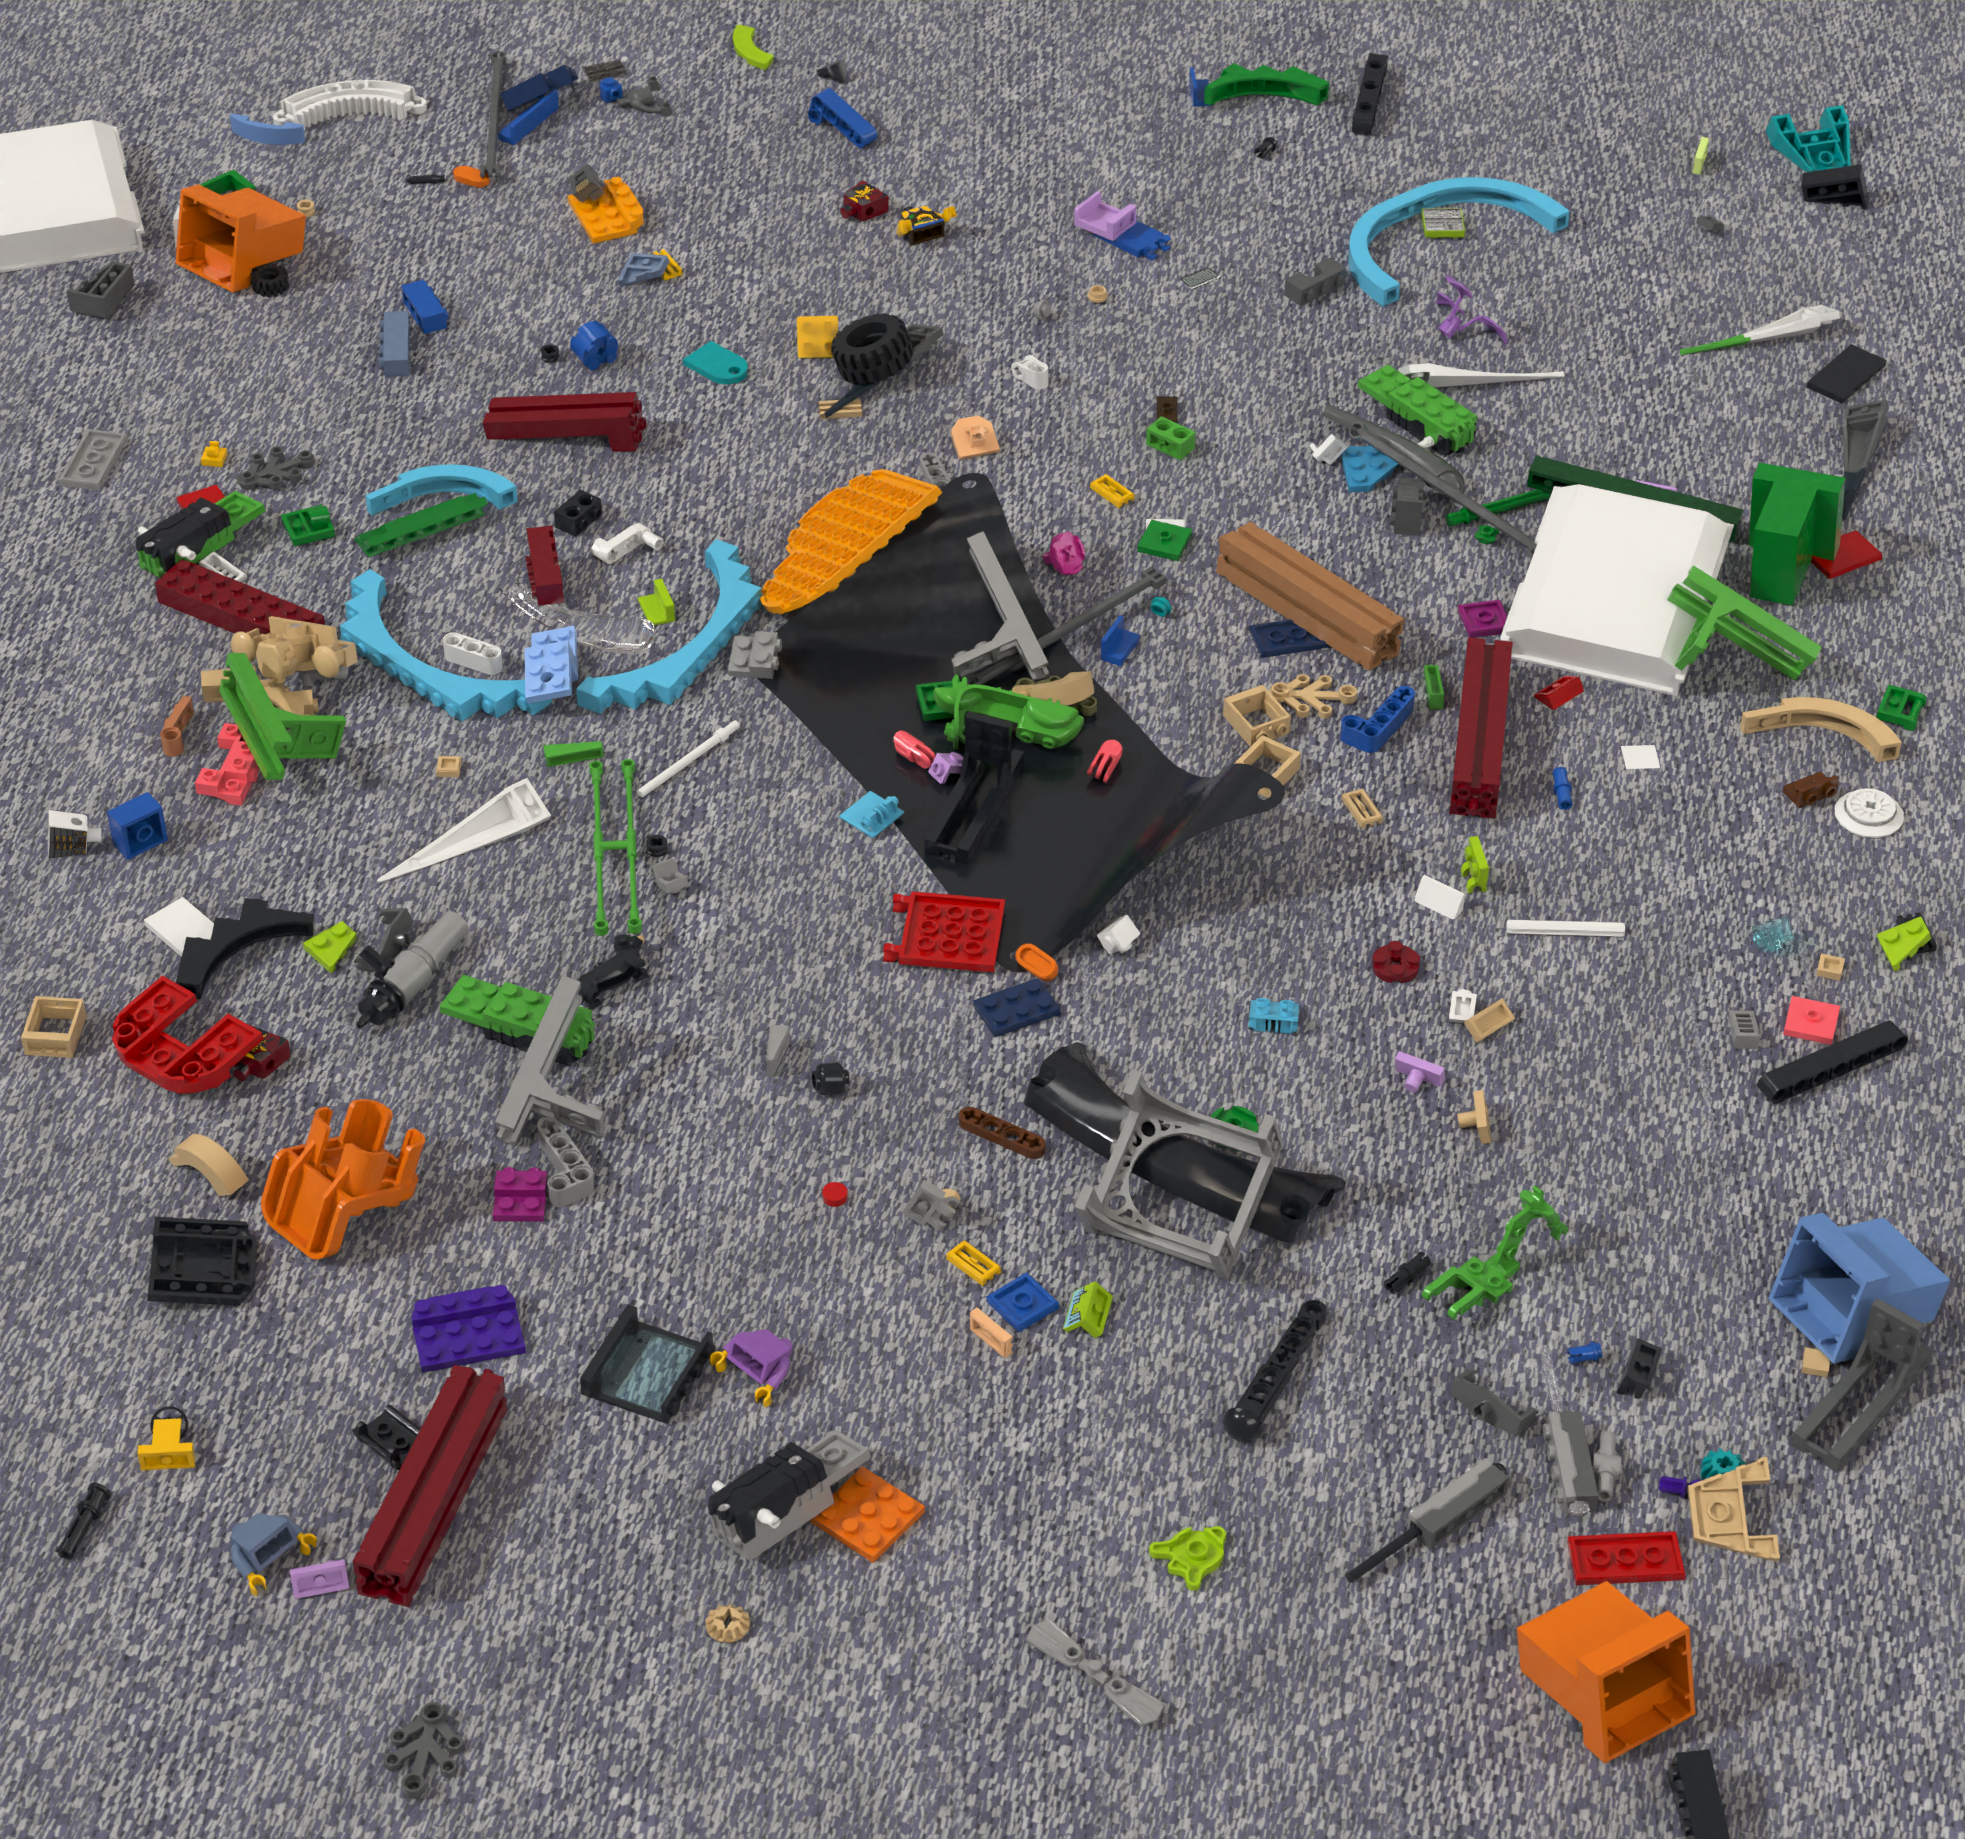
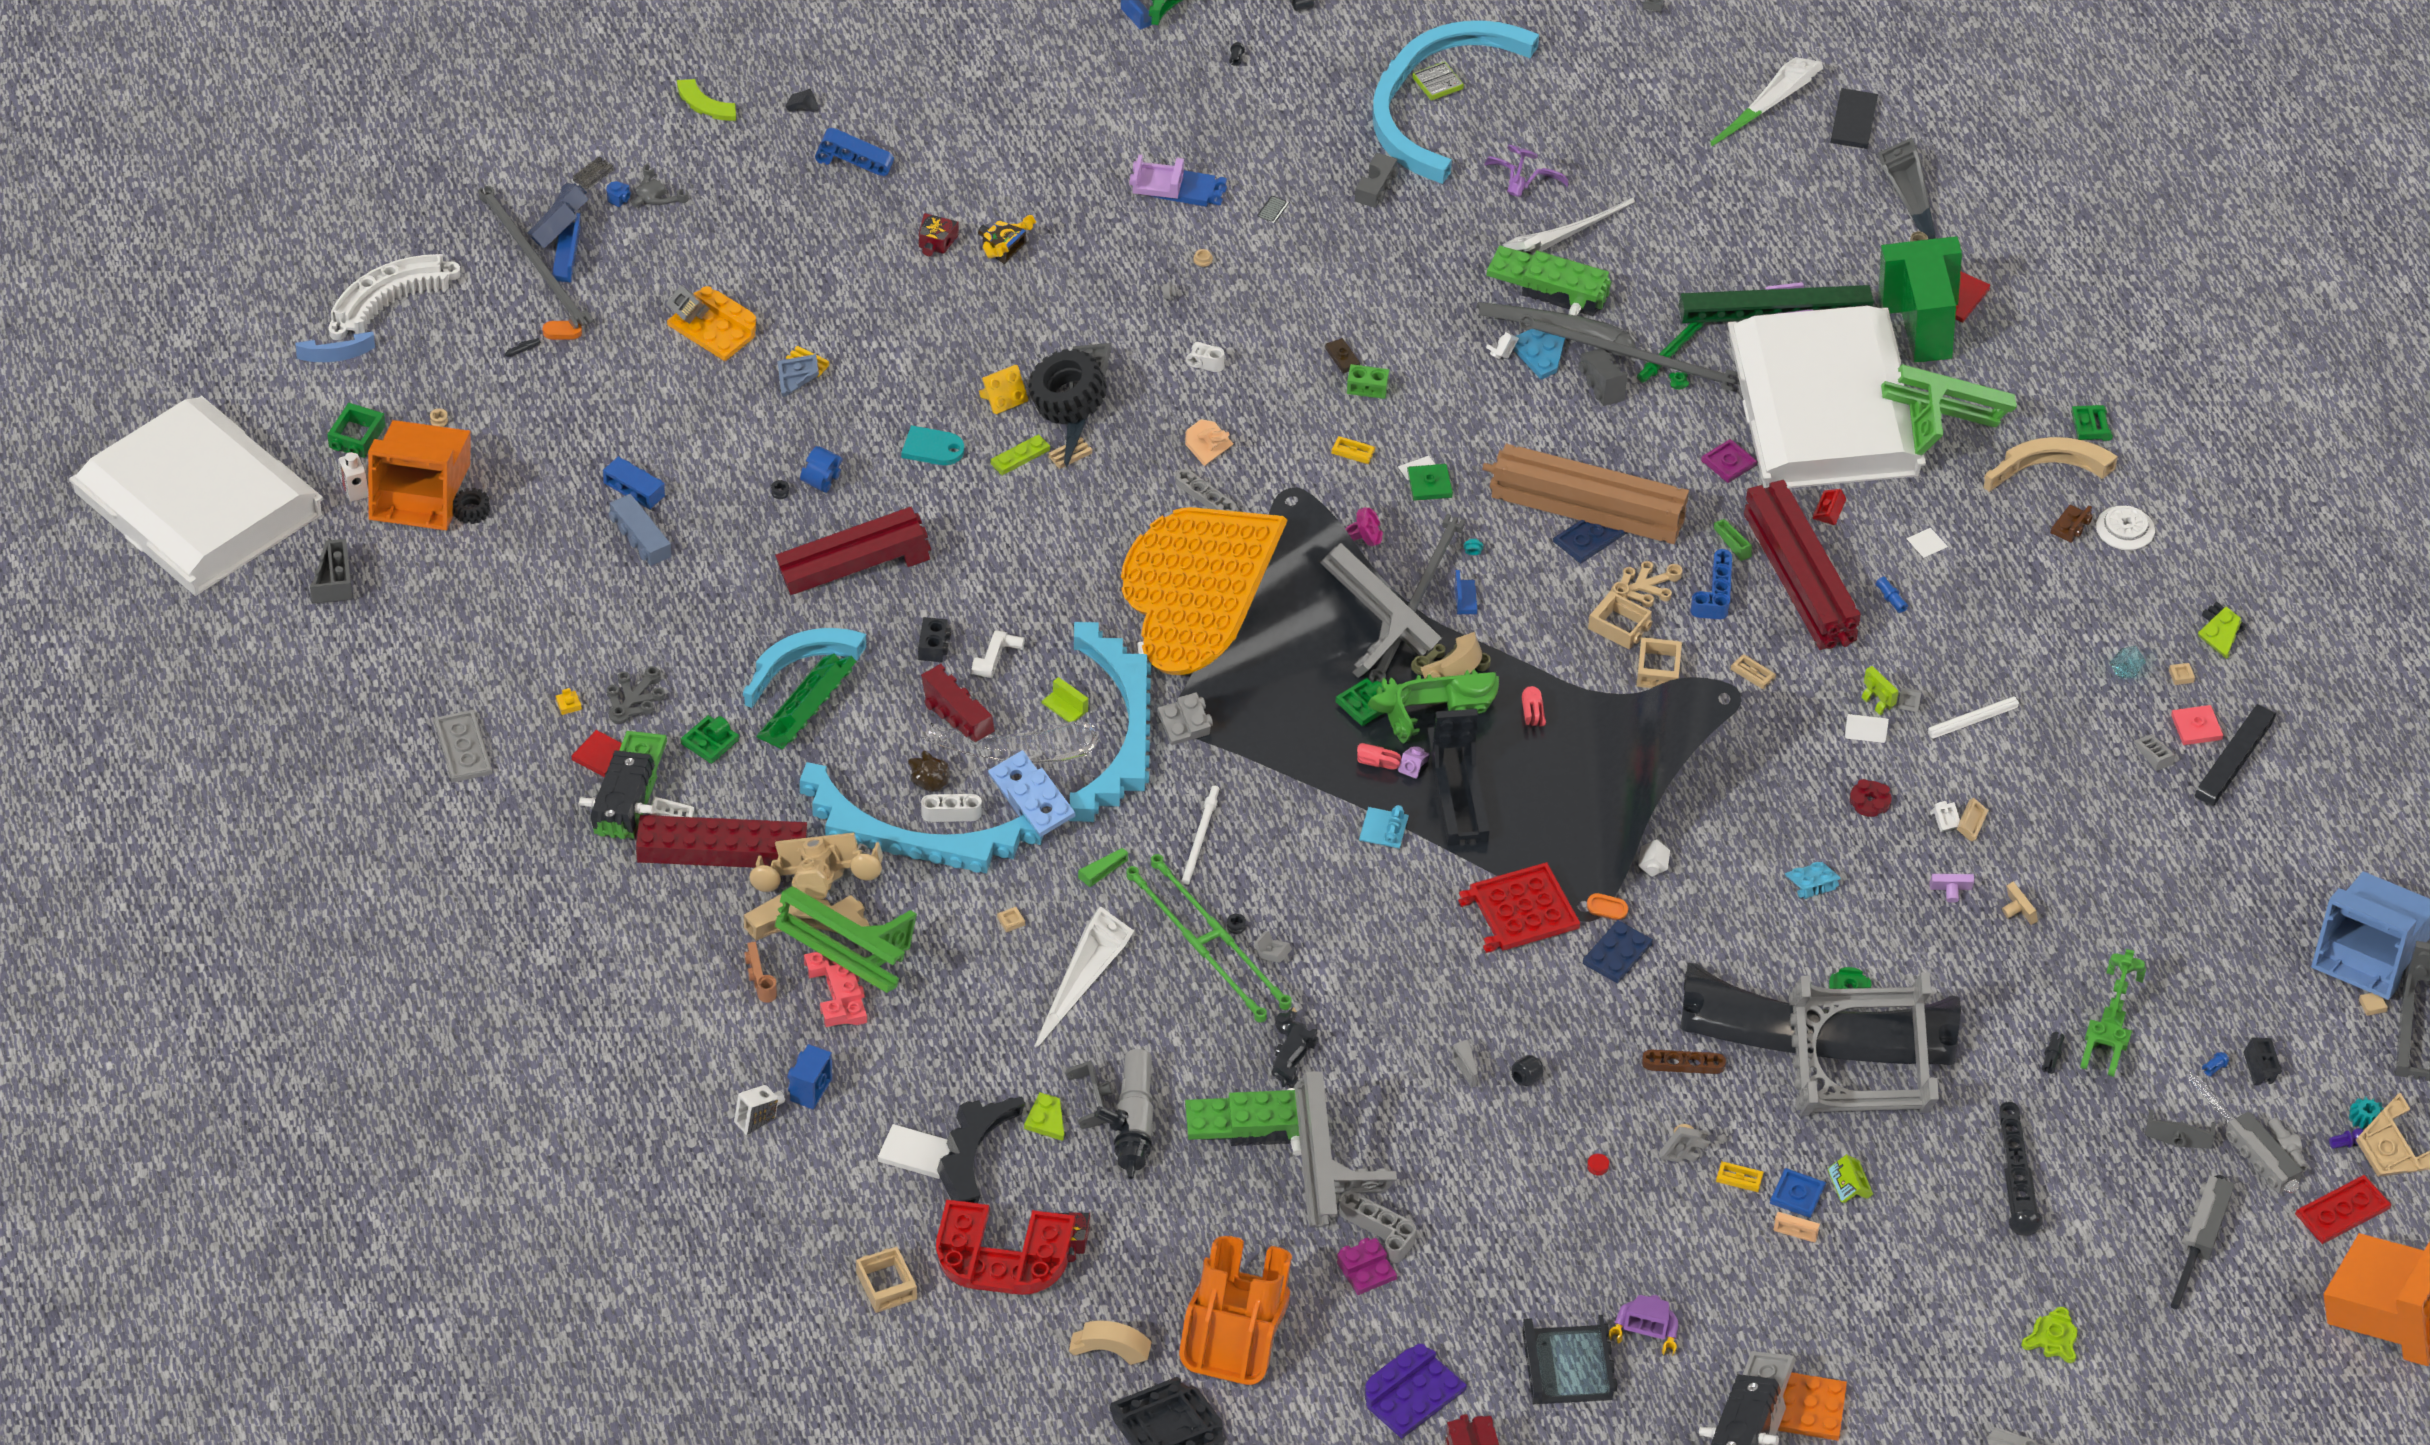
camera: 30 degrees left, 5 degrees up
(475, 617) = (929, 772): none -> dark brown animal
(792, 395) = (1020, 454): none -> lime plate
(1506, 887) = (1909, 699): none -> light grey tile

